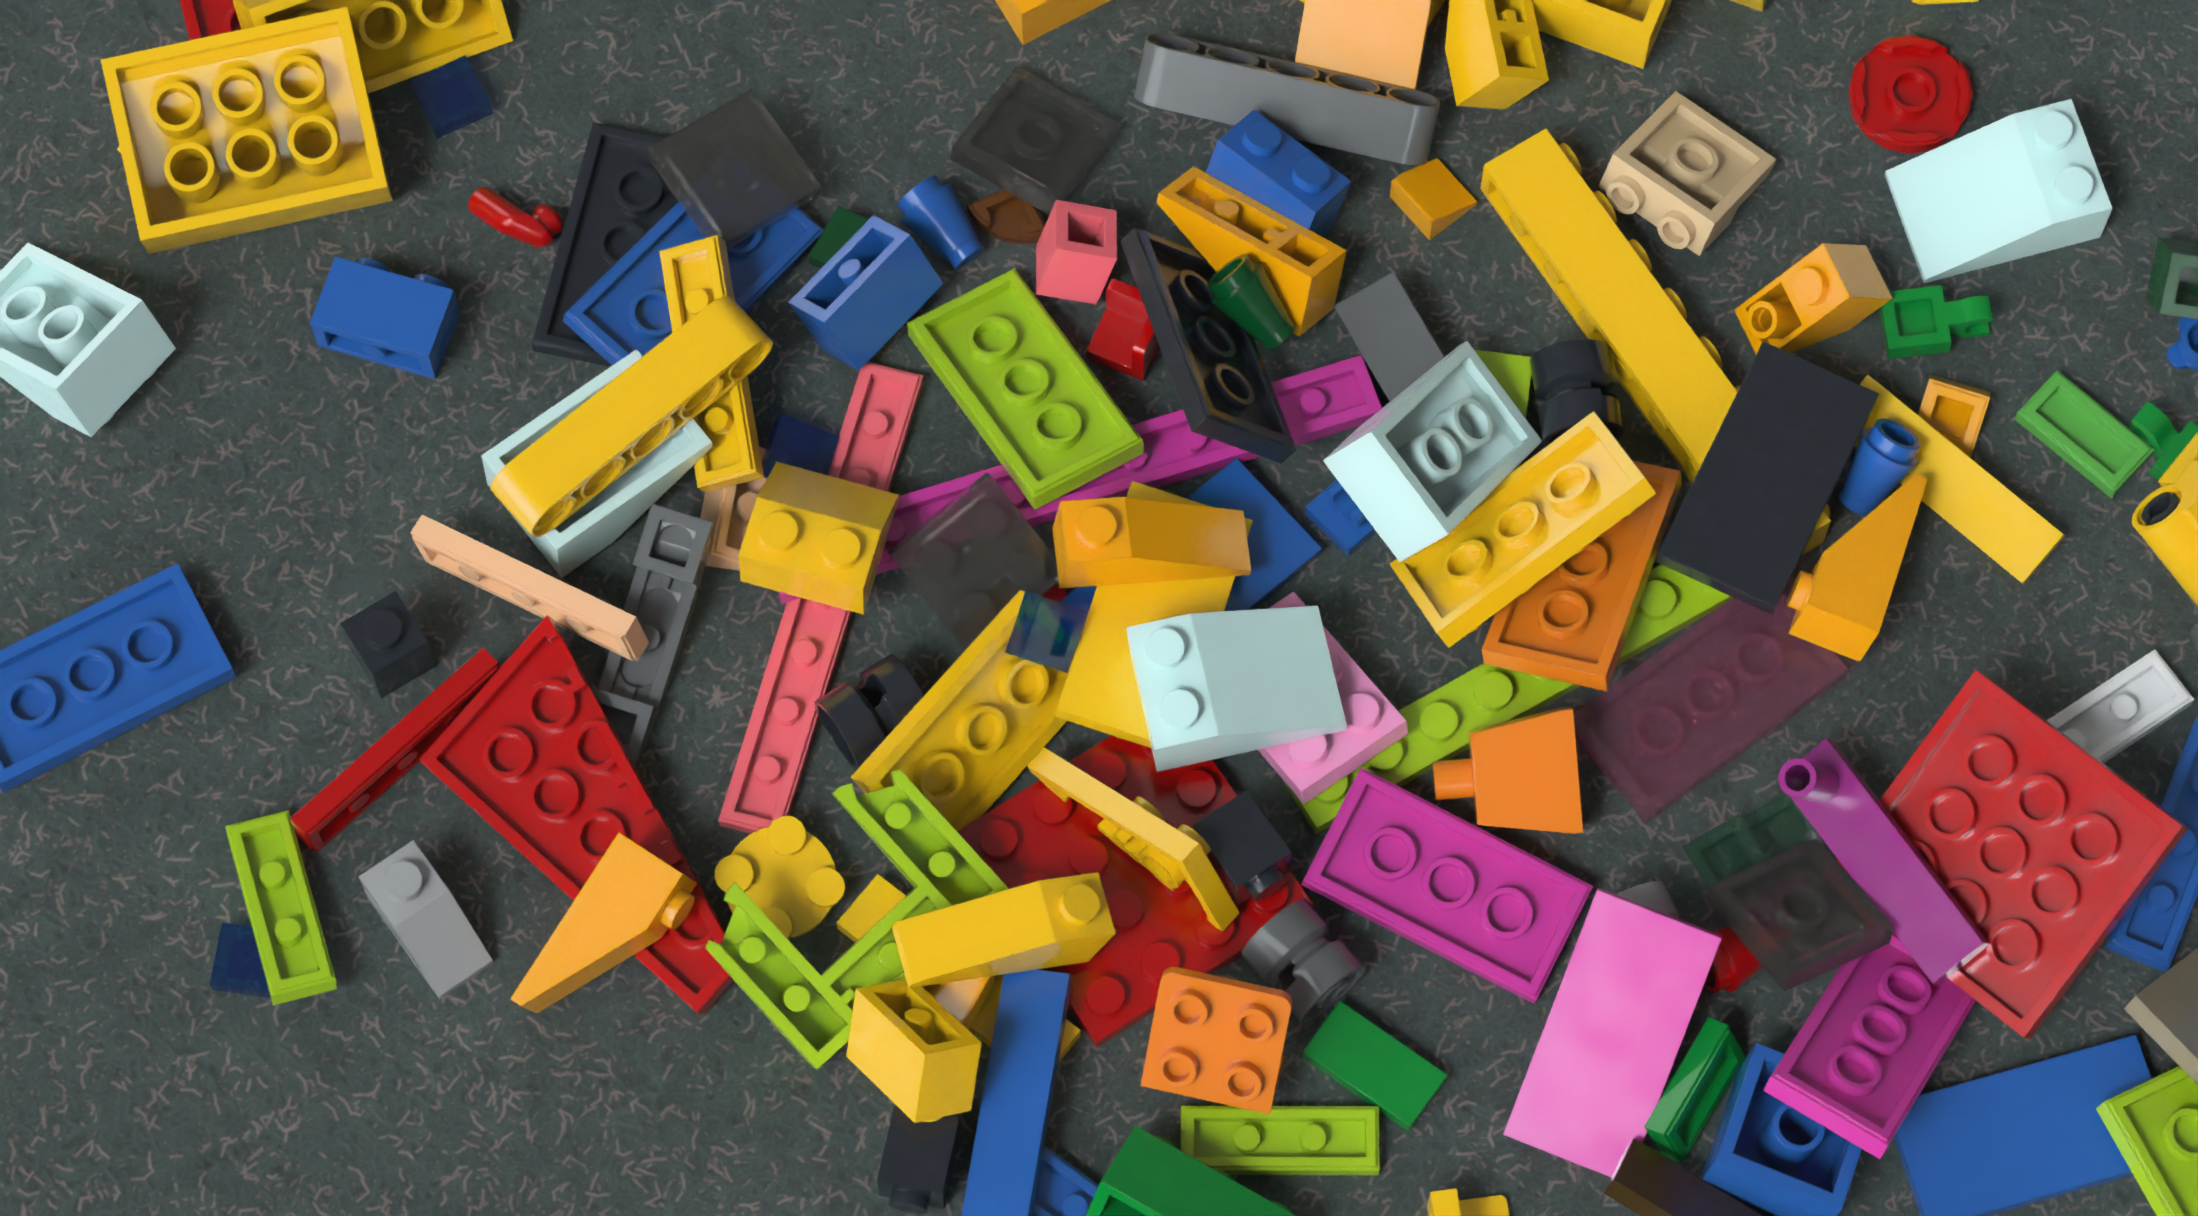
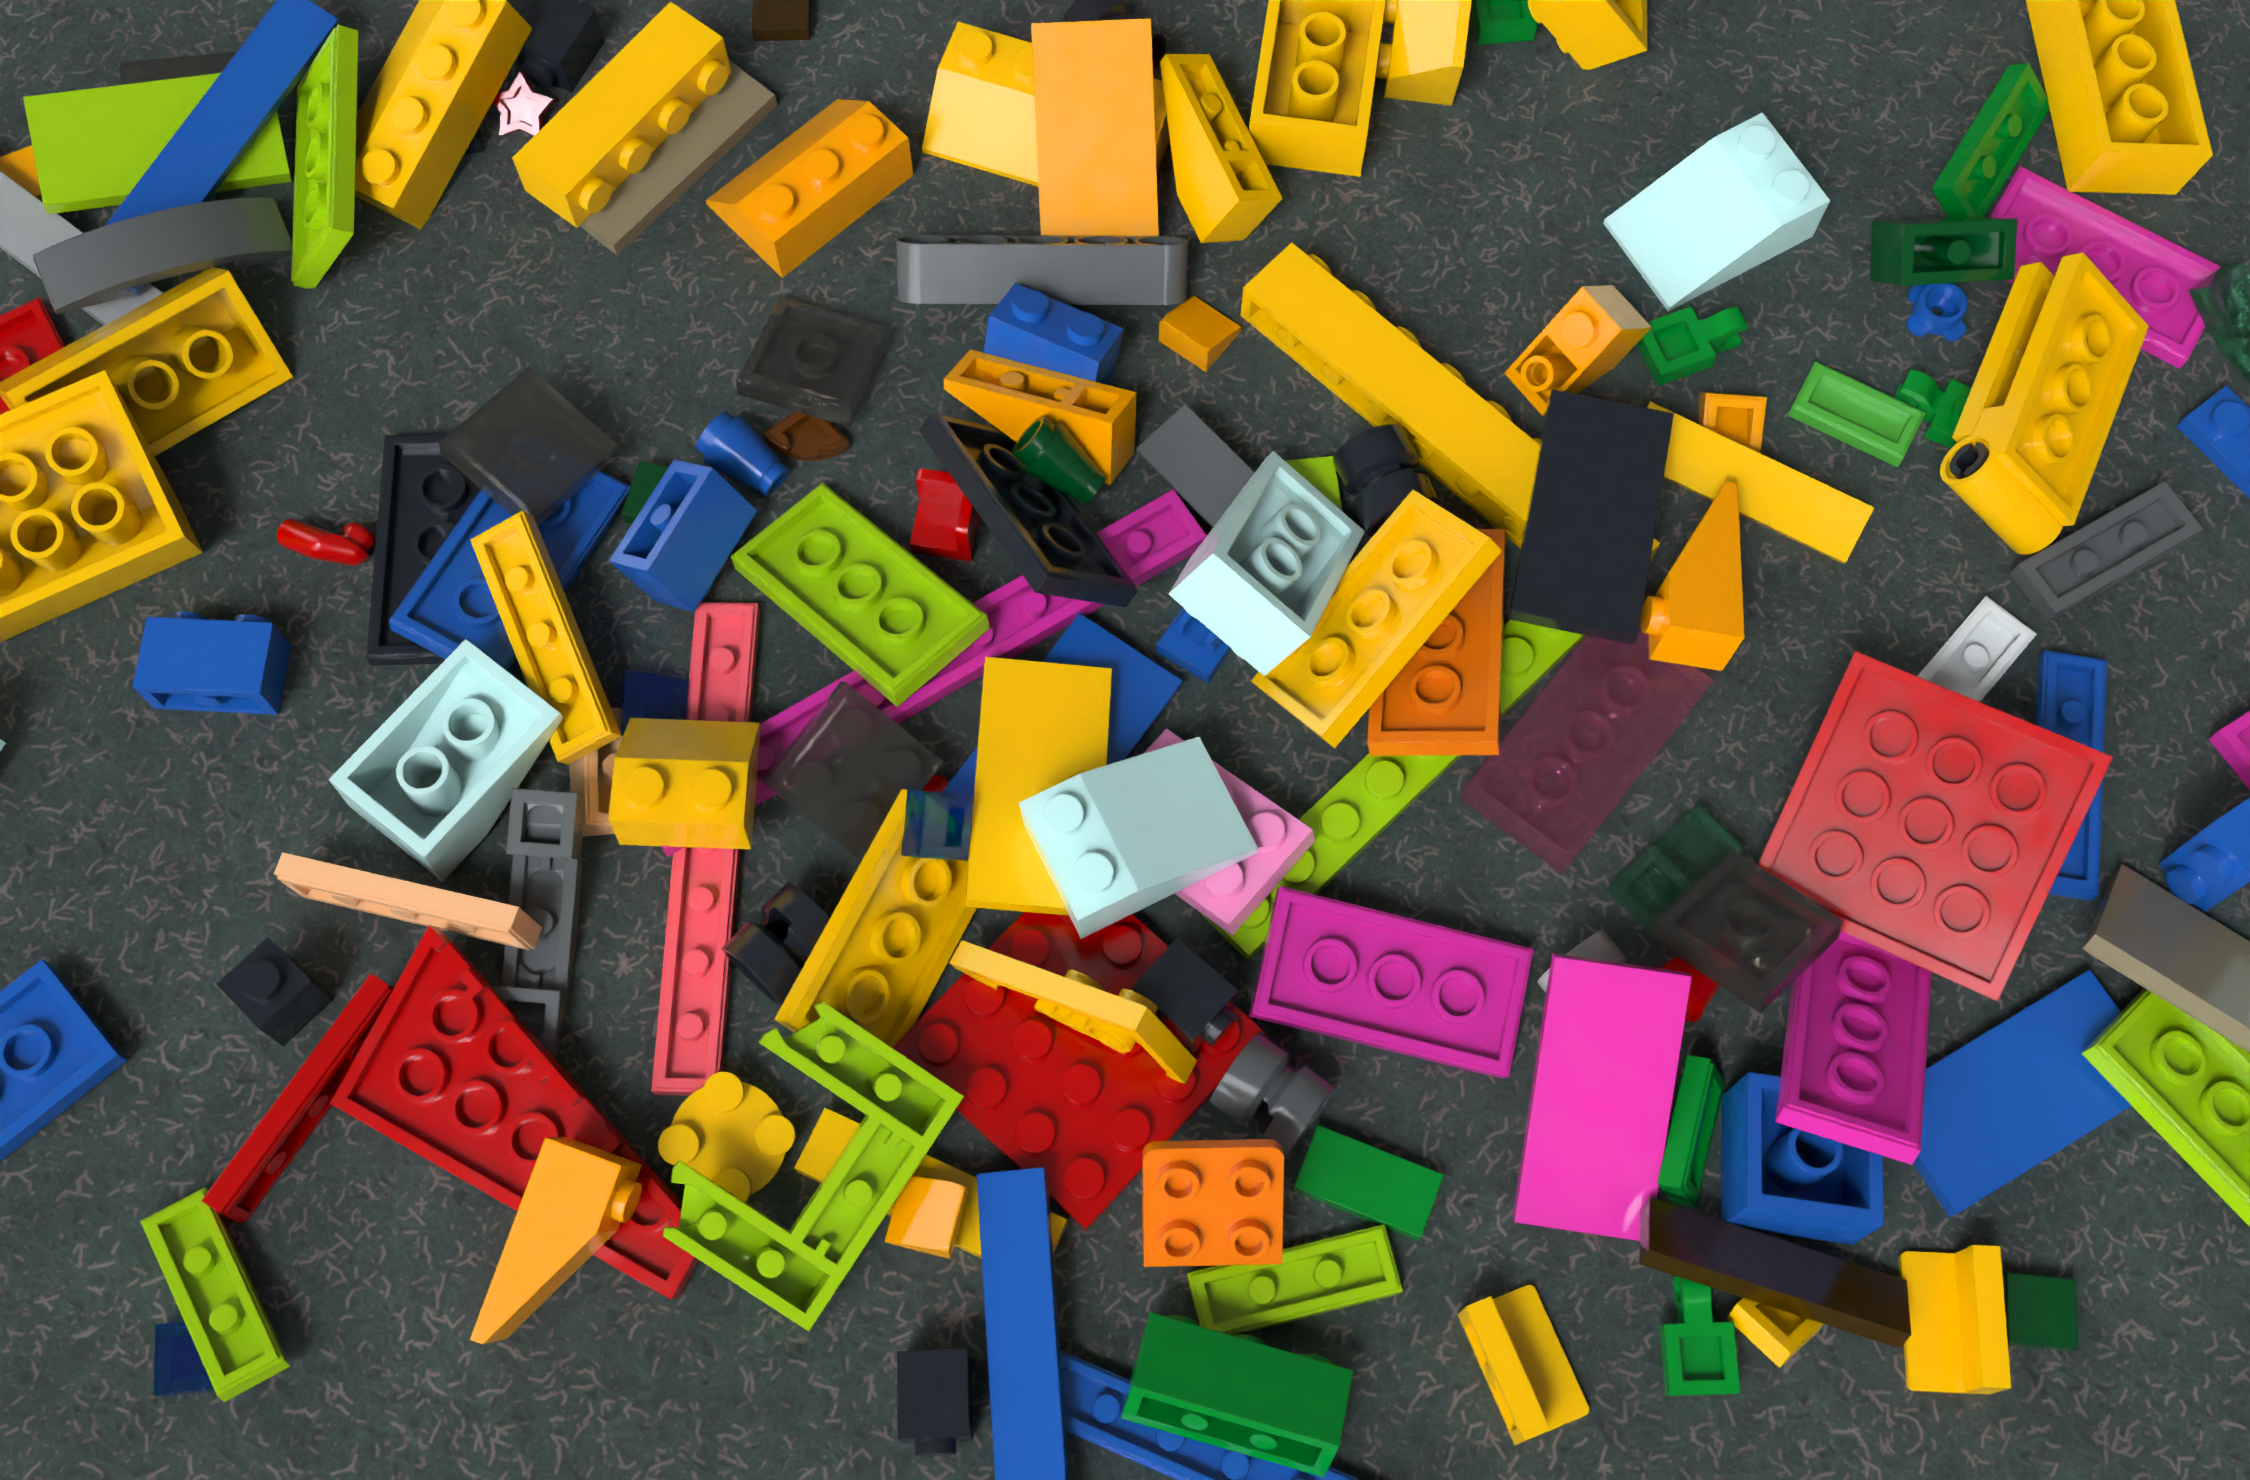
camera: 15 degrees left, 0 degrees up
(425, 919) = (367, 1270): light grey slope -> none
(451, 96) = (241, 441): clear blue tile -> none
(631, 416) = (469, 707): yellow beam -> none
(913, 1050) = (904, 1291): yellow brick -> none
(1007, 932) = (969, 1144): yellow slope -> none
(1076, 252) = (878, 452): coral brick -> none
(1146, 542) = (1014, 713): light orange slope -> none
(1519, 774) = (1435, 855): orange torso -> none
(1685, 174) = (1427, 259): tan plate -> none
(1879, 465) = (1688, 480): blue cone -> none
(1882, 860) = (1810, 858): magenta piece -> none
(1906, 114) = (1606, 165): red tile -> none

